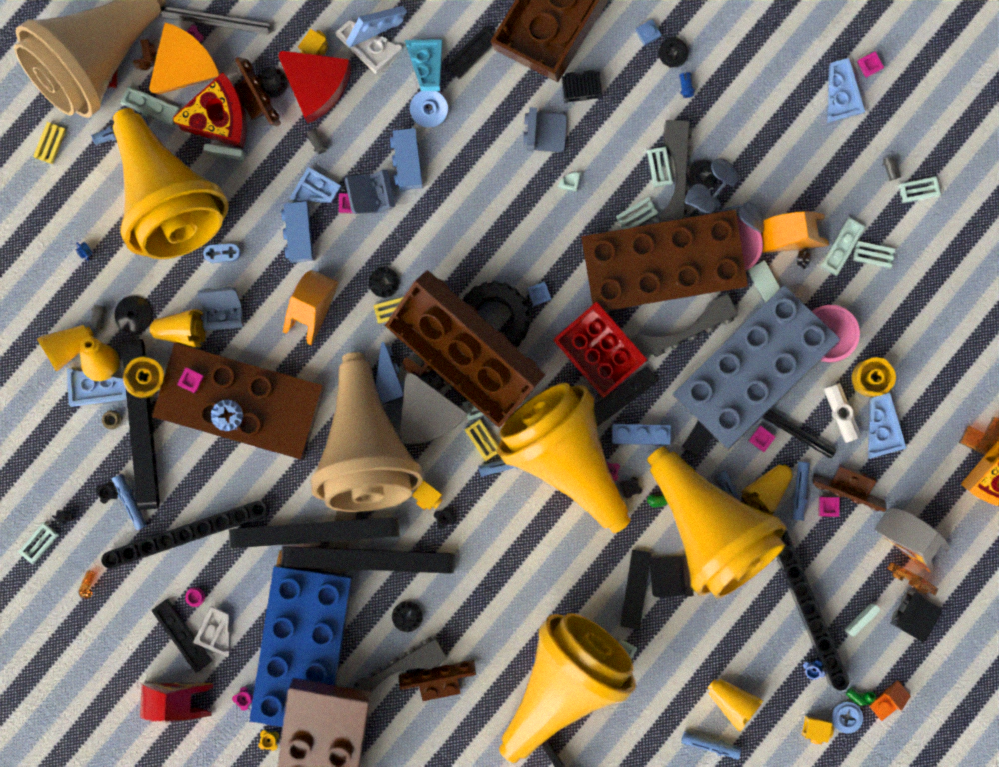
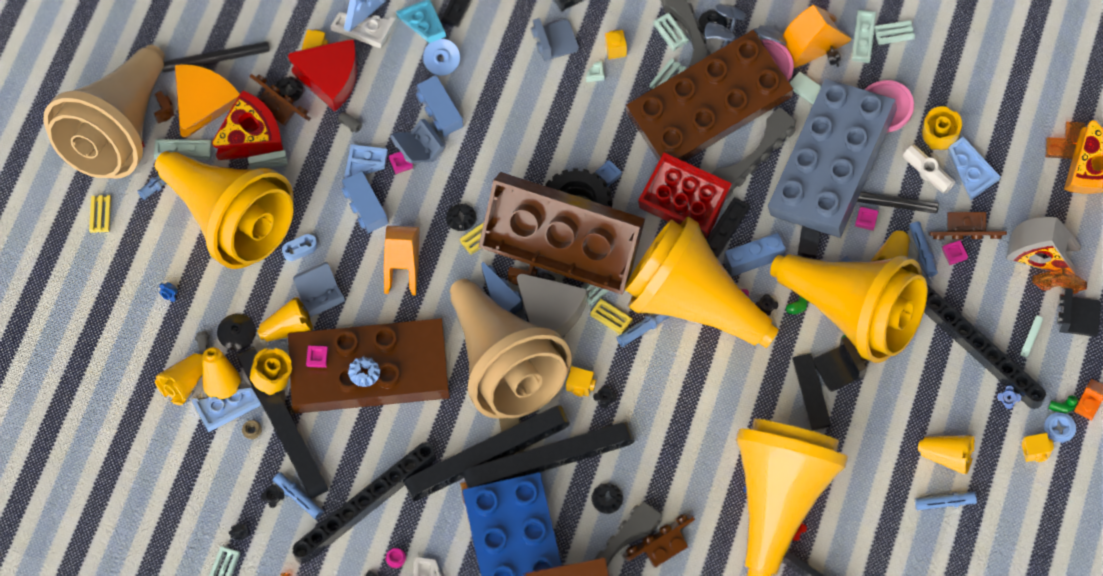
camera: 20 degrees left, 20 degrees down
(600, 161) = (615, 44): none -> yellow brick

